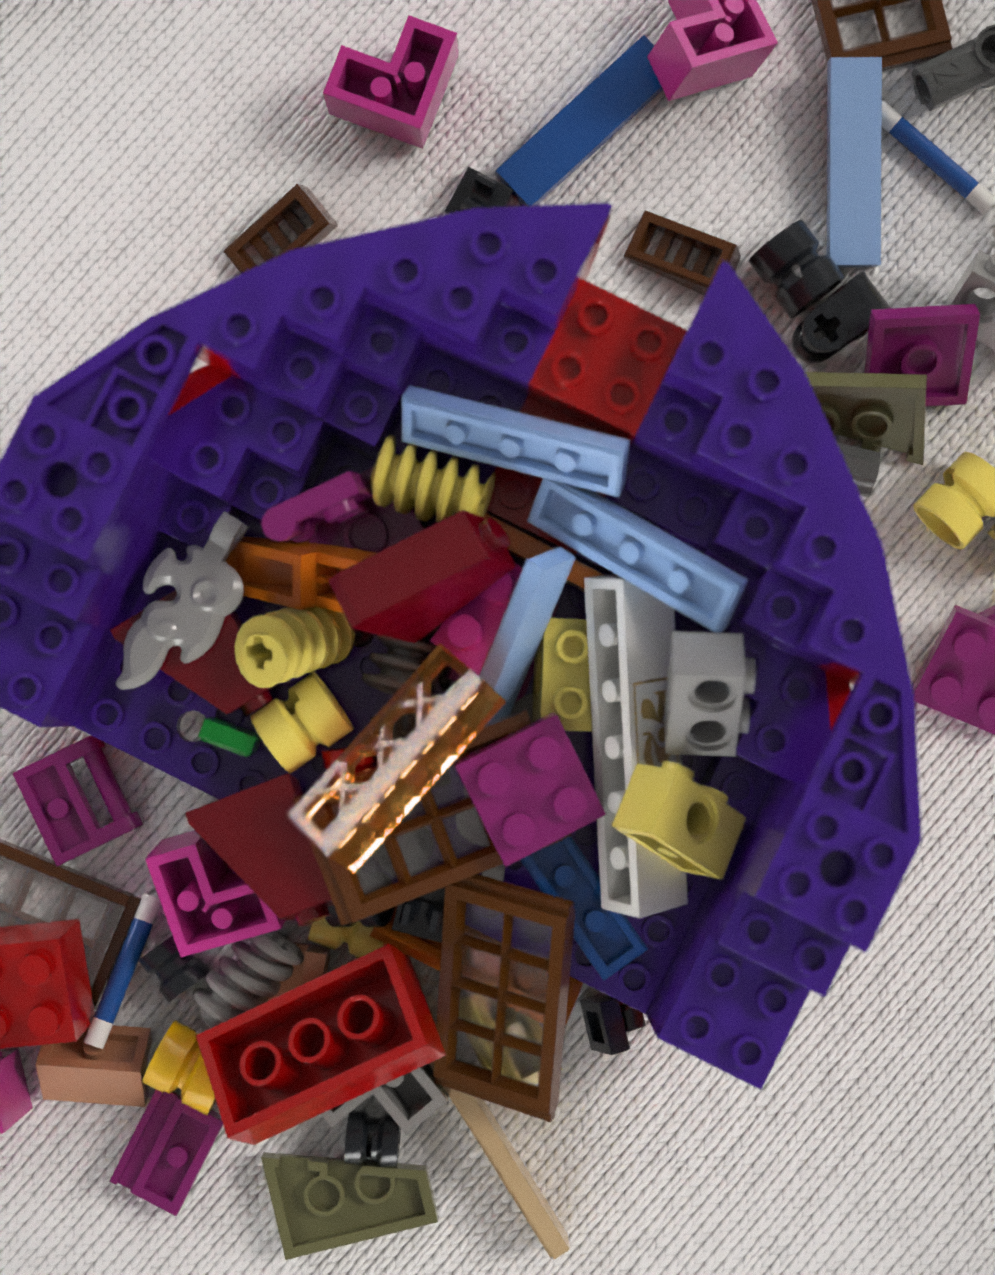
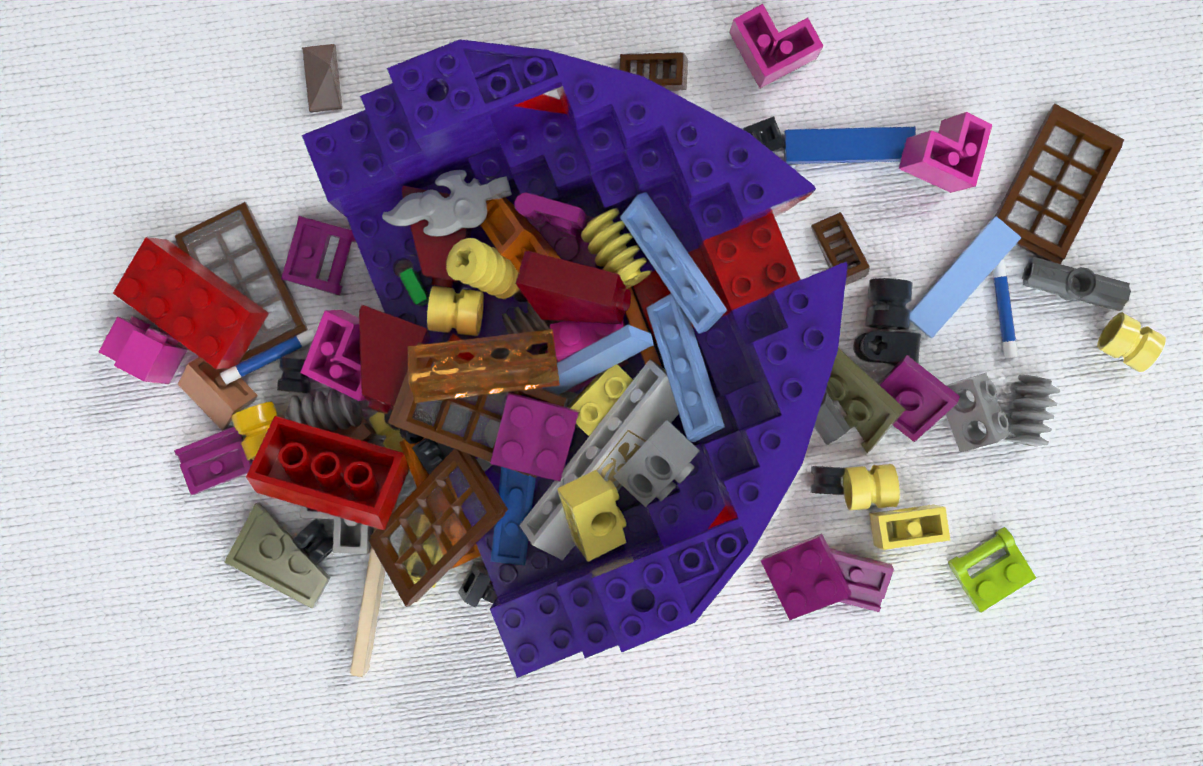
camera: 40 degrees right, 0 degrees up
(906, 537) = (827, 480): none -> black wheel

